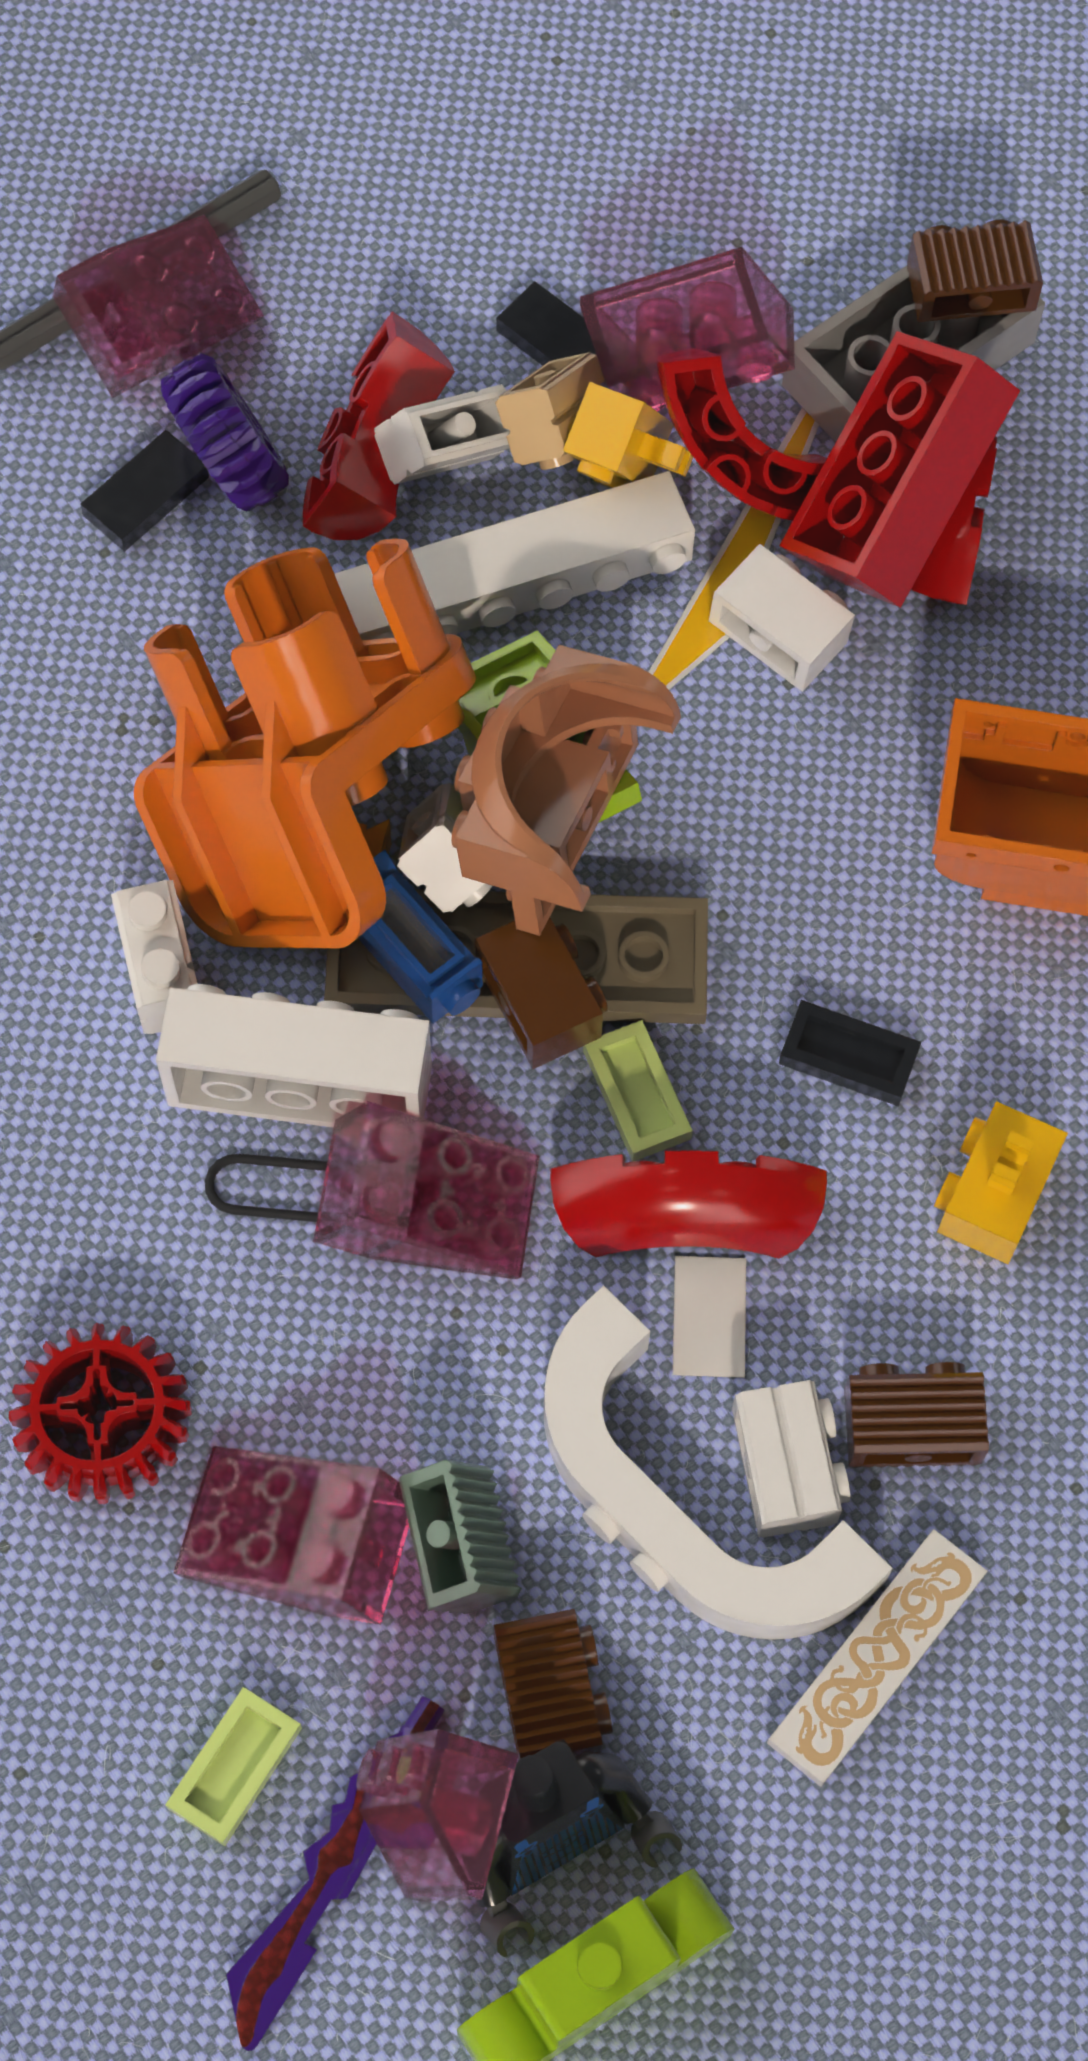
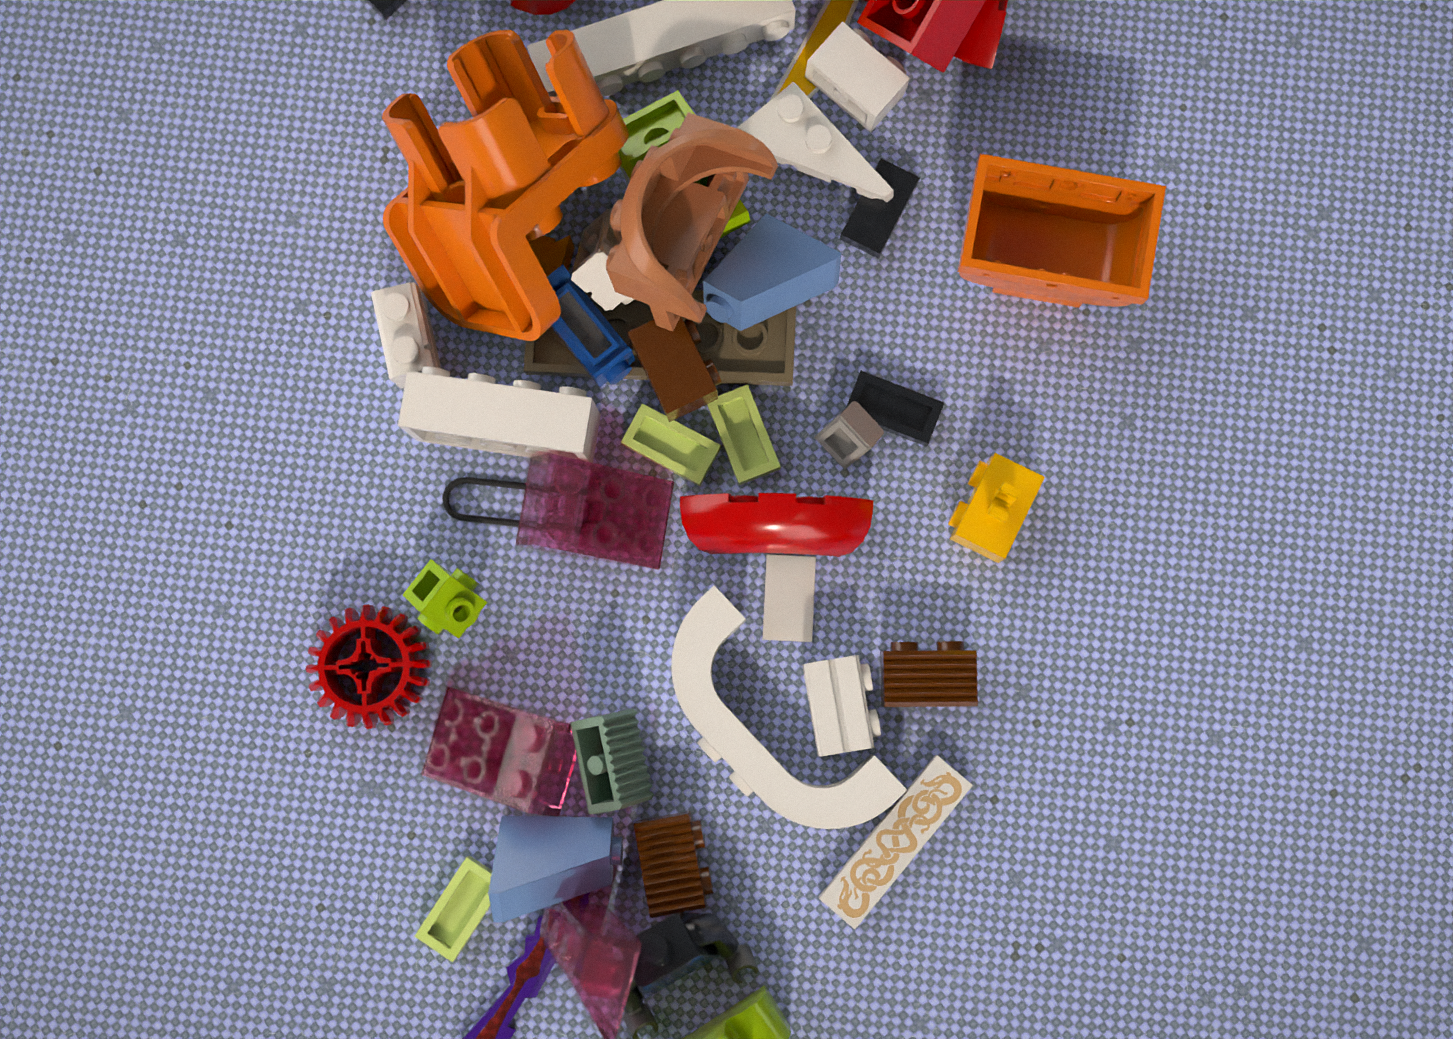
camera: 10 degrees right, 15 degrees up
(214, 1313) = (445, 599): none -> lime brick
(374, 1680) = (550, 861): none -> medium blue slope
(534, 1105) = (671, 445): none -> yellowish green tile
(671, 867) = (769, 274): none -> medium blue slope
(731, 707) = (810, 142): none -> white wing
(788, 1087) = (850, 434): none -> light grey slope
(819, 788) = (875, 219): none -> black tile

